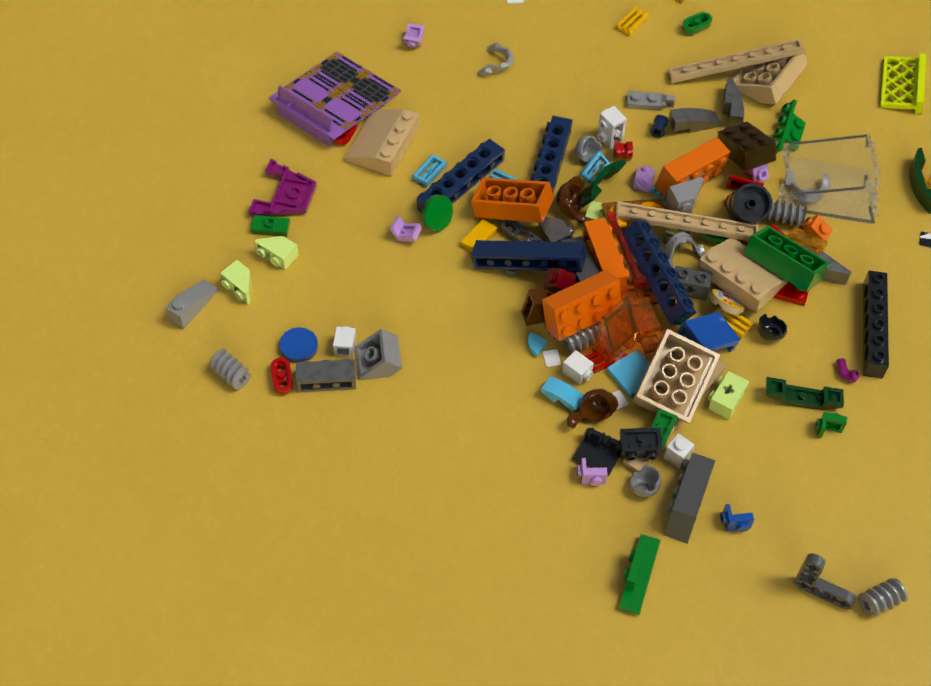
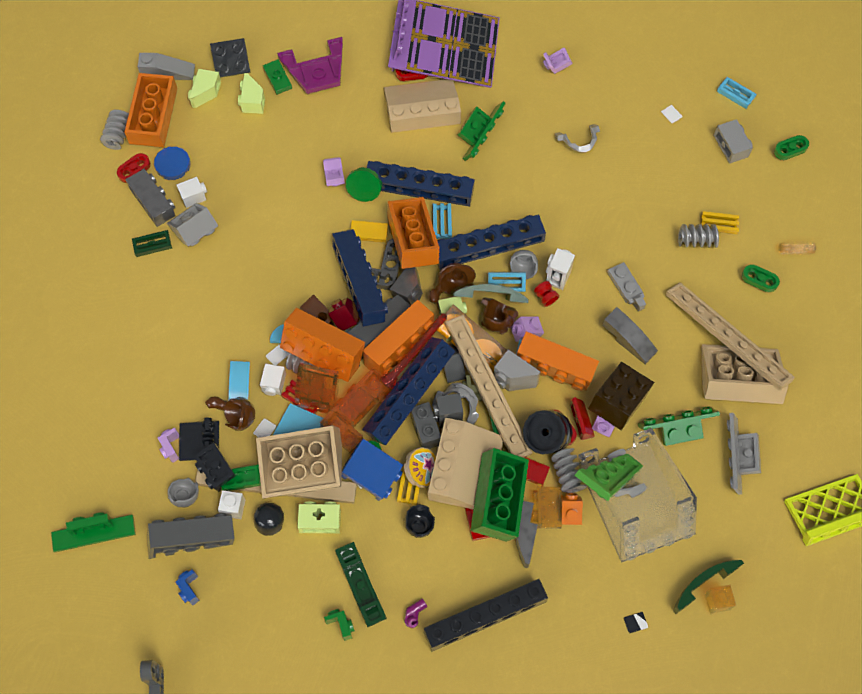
camera: 60 degrees right, 10 degrees up
(222, 247) = (230, 57): none -> black hinge
(233, 330) = (151, 110): none -> orange brick
(368, 412) = (152, 246): none -> dark green tile
(434, 170) = (415, 159): medium azure tile -> none
(439, 115) = (476, 128): none -> green bracket
(625, 187) = (498, 316): none -> reddish brown helmet
(638, 36) = (698, 234): none -> light grey piece
(658, 128) = (599, 309): dark blue bush -> none
(691, 253) = (448, 407): none -> dark grey brick
(705, 433) = (268, 518): none -> black hair
(733, 104) = (674, 360): flat silver slope -> none
(815, 181) = (610, 476): none -> bright green wing
(833, 105) = (745, 454): none -> light grey bracket

